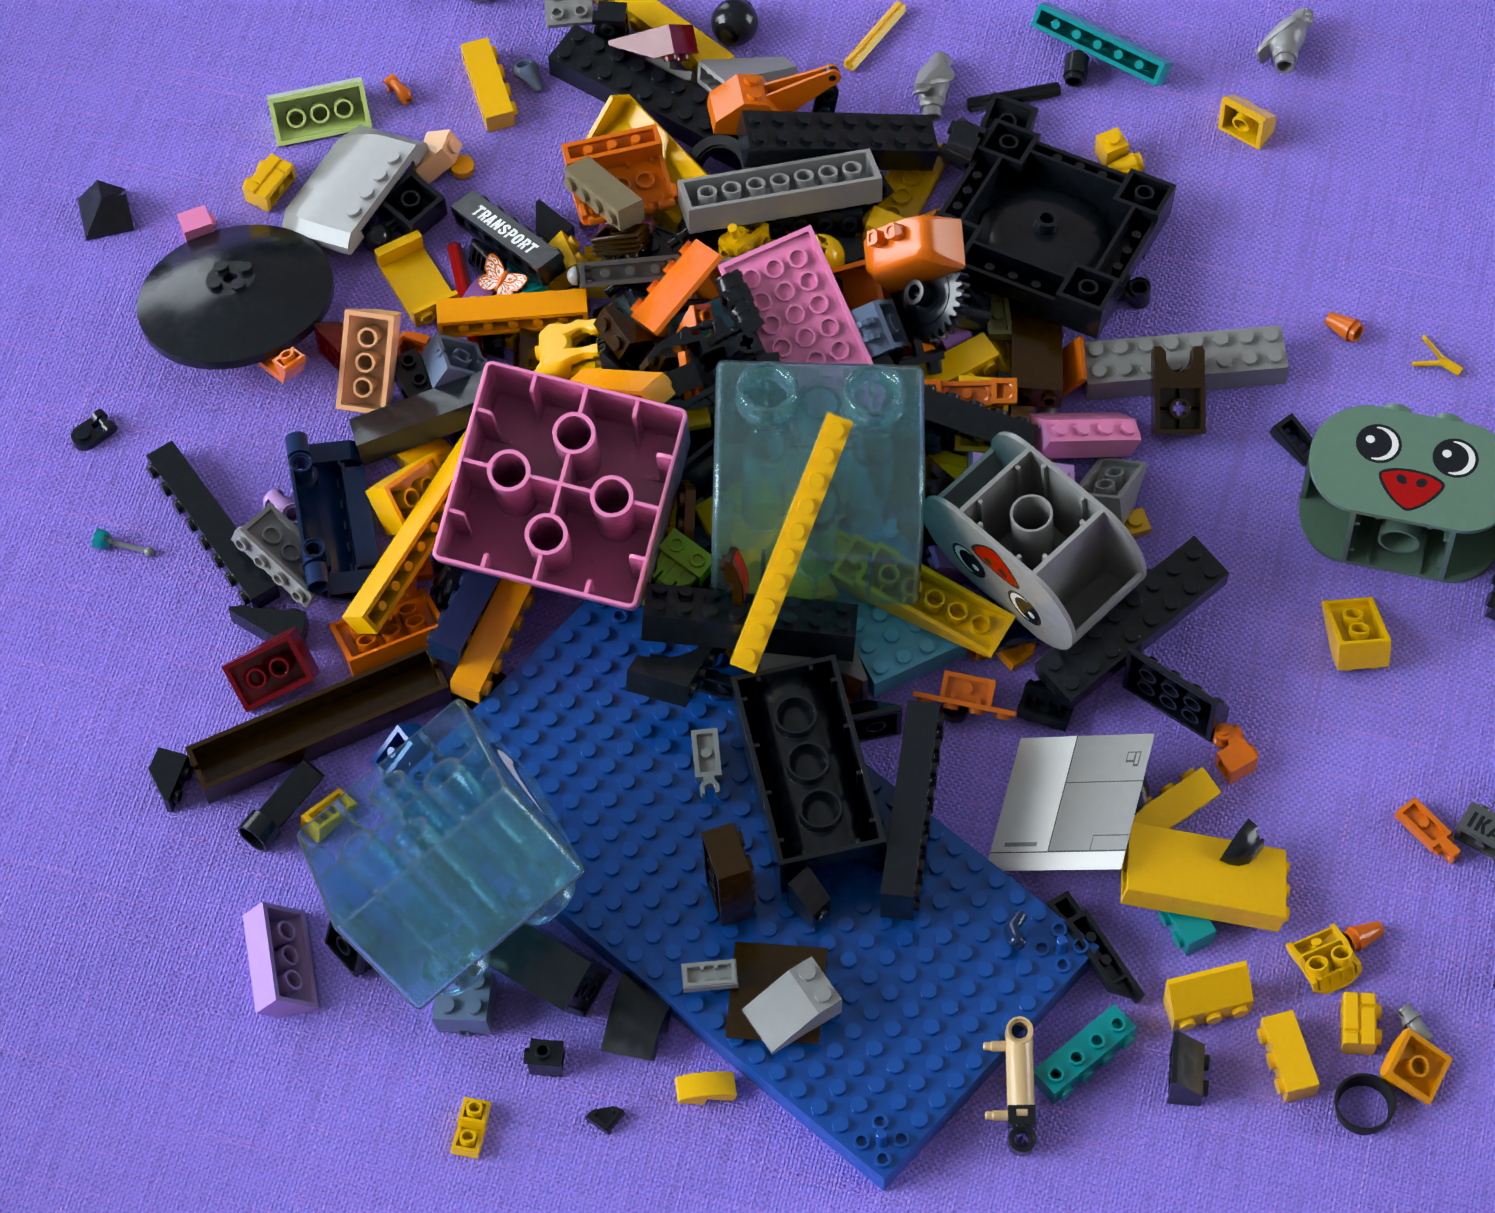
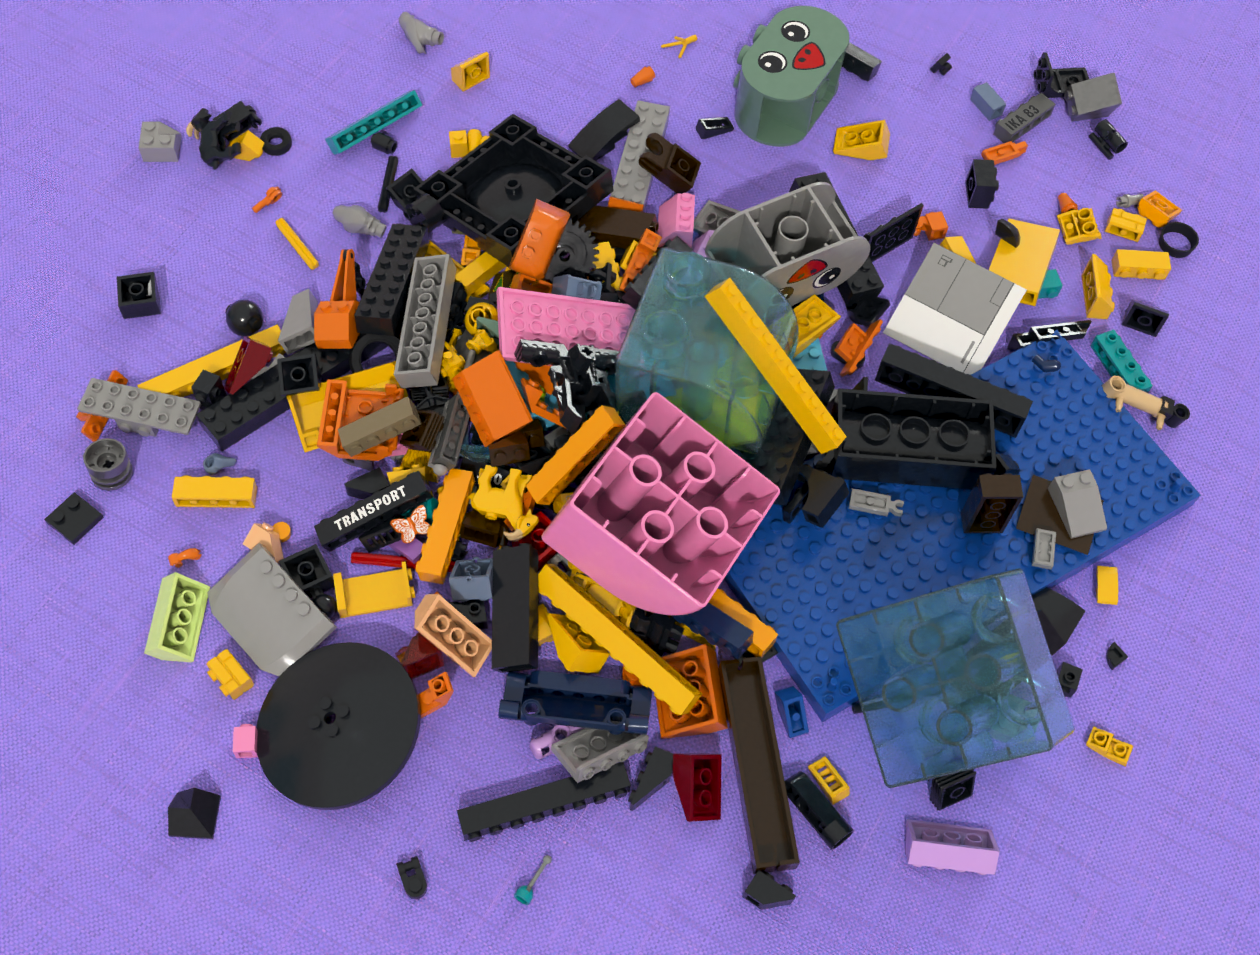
camera: 80 degrees left, 0 degrees up
(652, 96) = (299, 374): none -> black slope
(736, 575) = (772, 422): dark brown slope -> none
(1208, 304) = (604, 130): none -> black slope
(1336, 800) = (981, 183): none -> black brick

